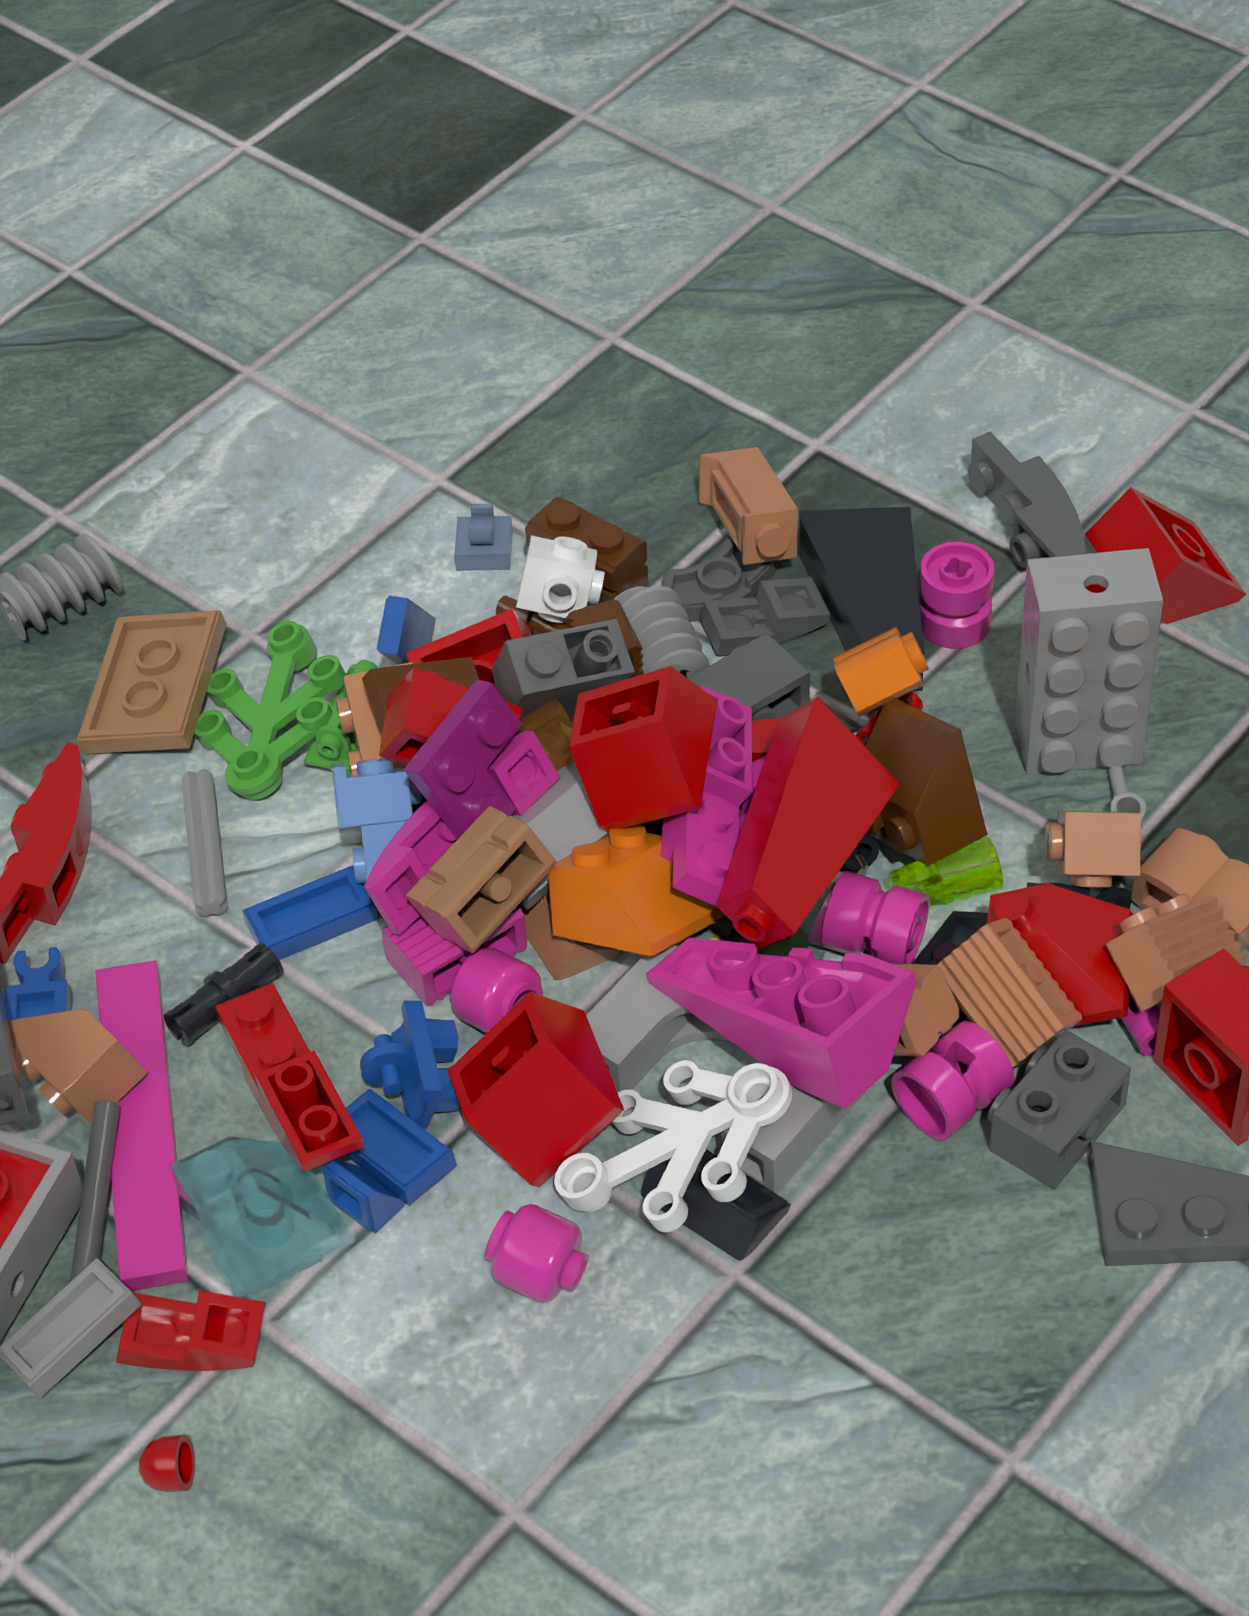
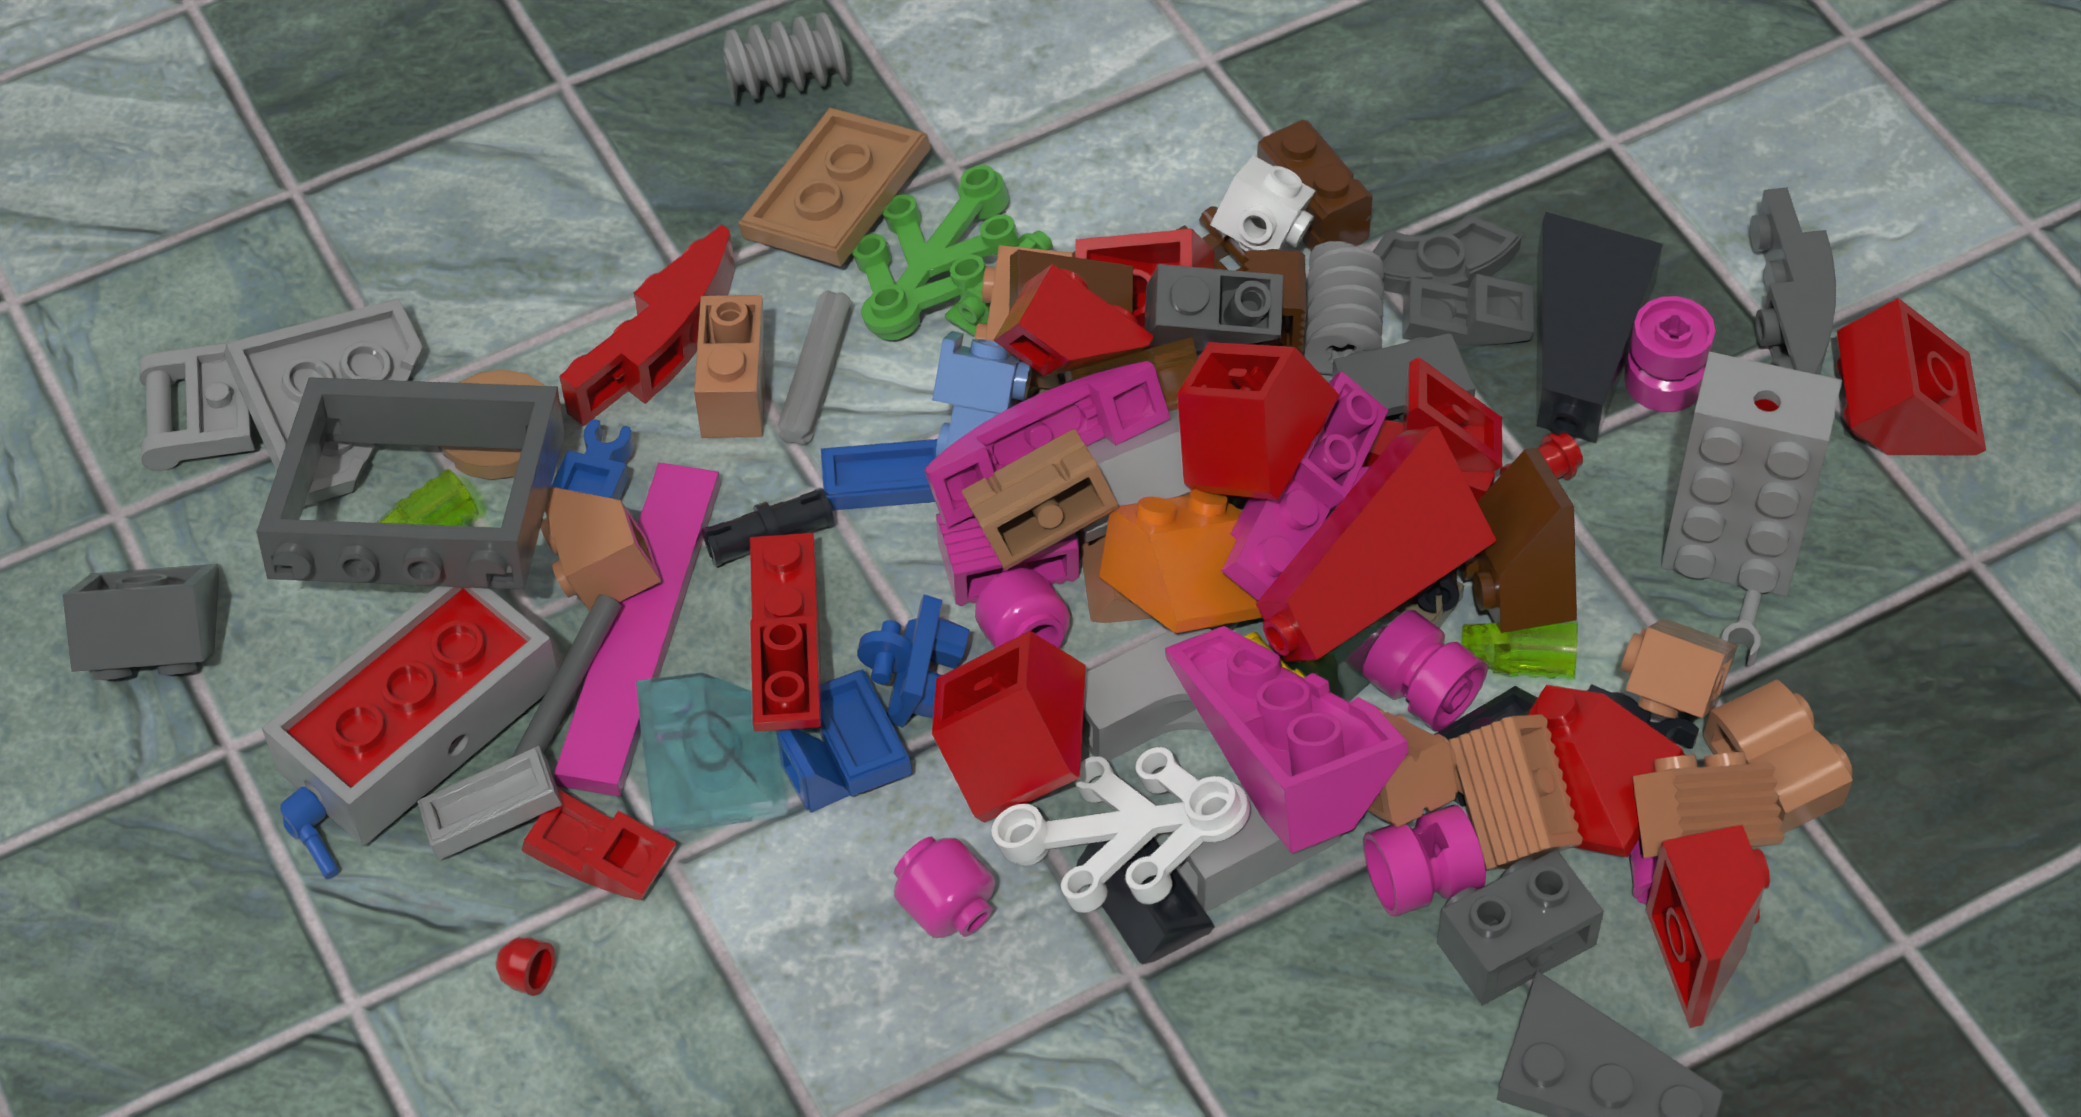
camera: 20 degrees right, 5 degrees up
(129, 864) = (730, 367): none -> nougat slope
(403, 628) = (1088, 213): blue tile -> none
(455, 758) = (1059, 369): magenta plate -> none
(483, 540) = (1221, 140): sand blue tile -> none
(750, 504) = (1500, 188): nougat window -> none
(789, 686) = (1465, 422): none -> red slope
(881, 670) = (1539, 412): orange brick -> none

